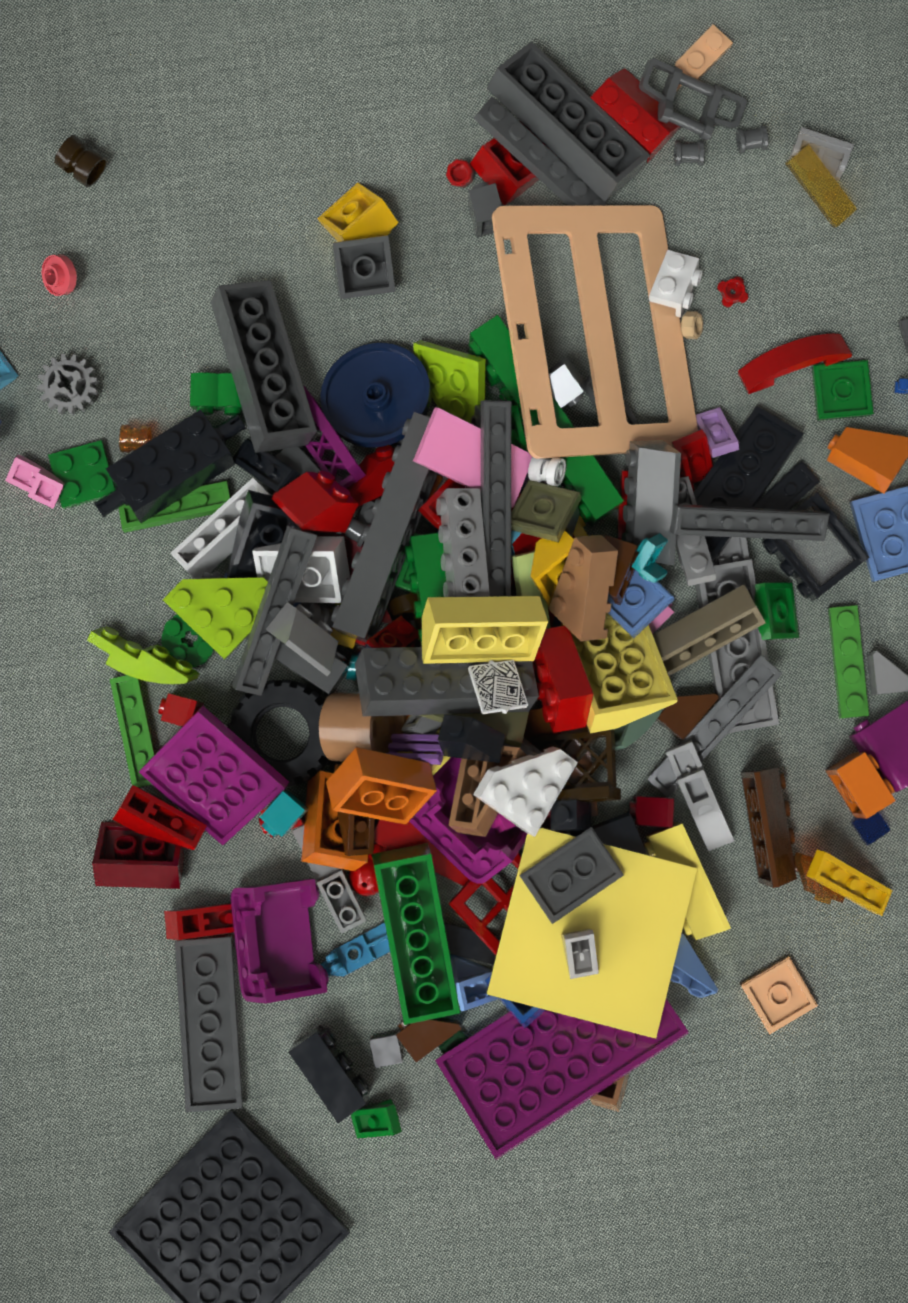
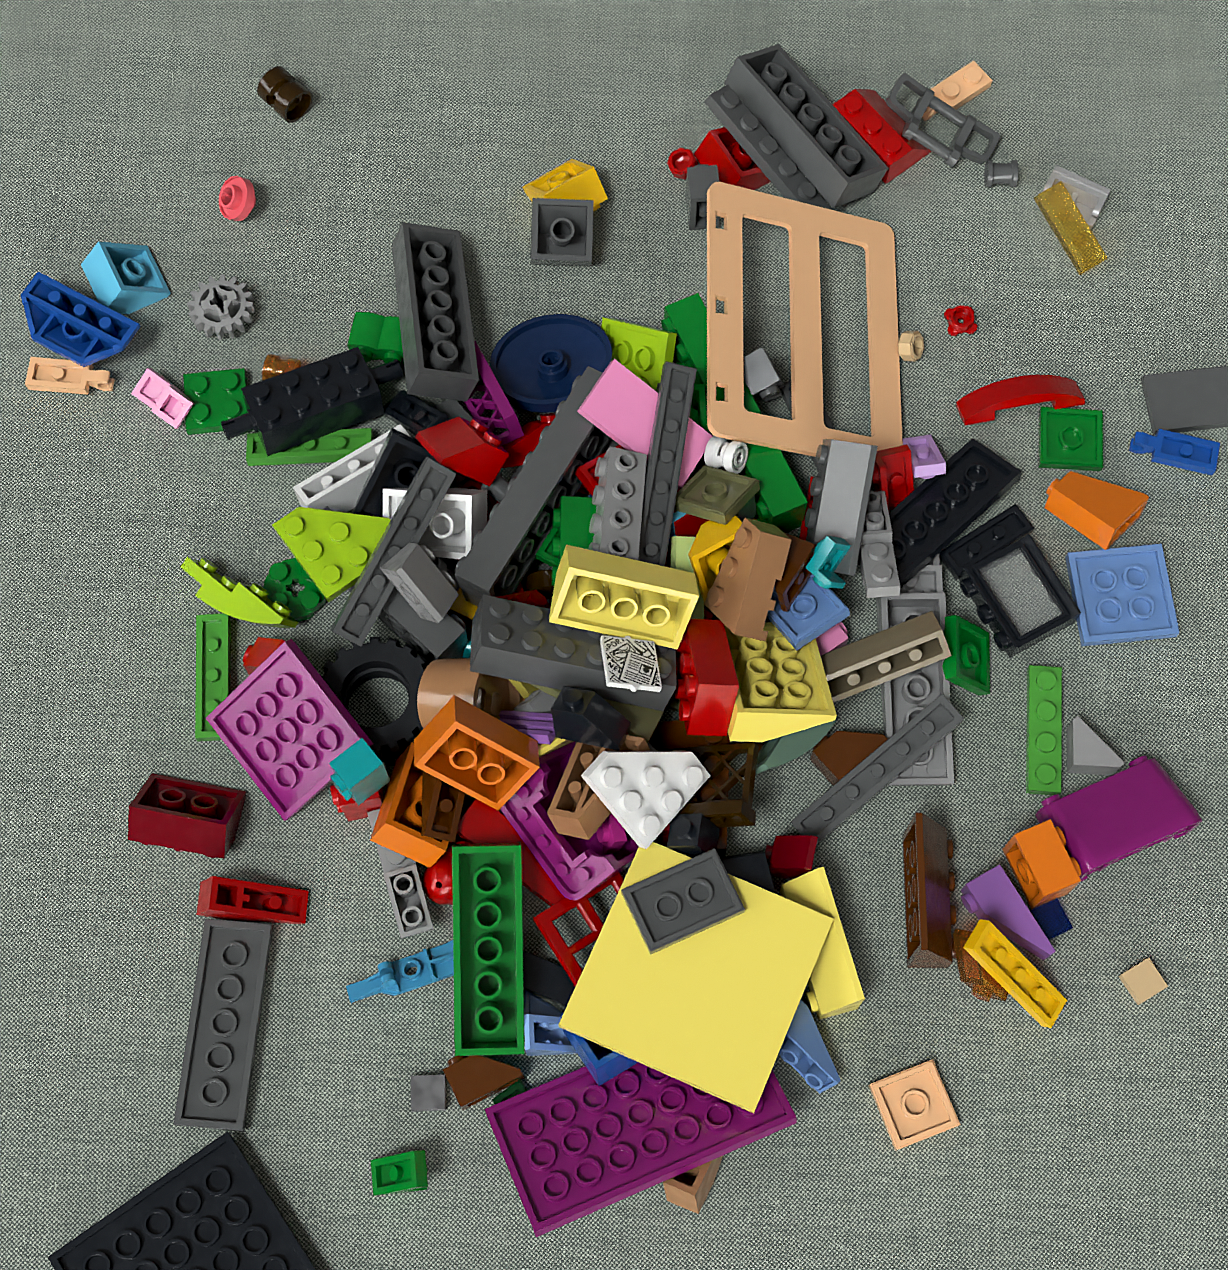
camera: 15 degrees right, 15 degrees down
(158, 819) = (214, 774): red slope -> none
(276, 941) = (324, 932): magenta windscreen -> none
(330, 1073) = (355, 1101): black brick -> none
(580, 953) = (678, 988): light grey slope -> none
(675, 281) = (900, 298): white bracket -> none
(689, 153) = (931, 177): dark grey bush -> none
(699, 795) = (850, 848): light grey slope -> none
(749, 522) = (946, 545): dark grey tile -> none
(826, 819) = (997, 900): none -> medium lavender slope

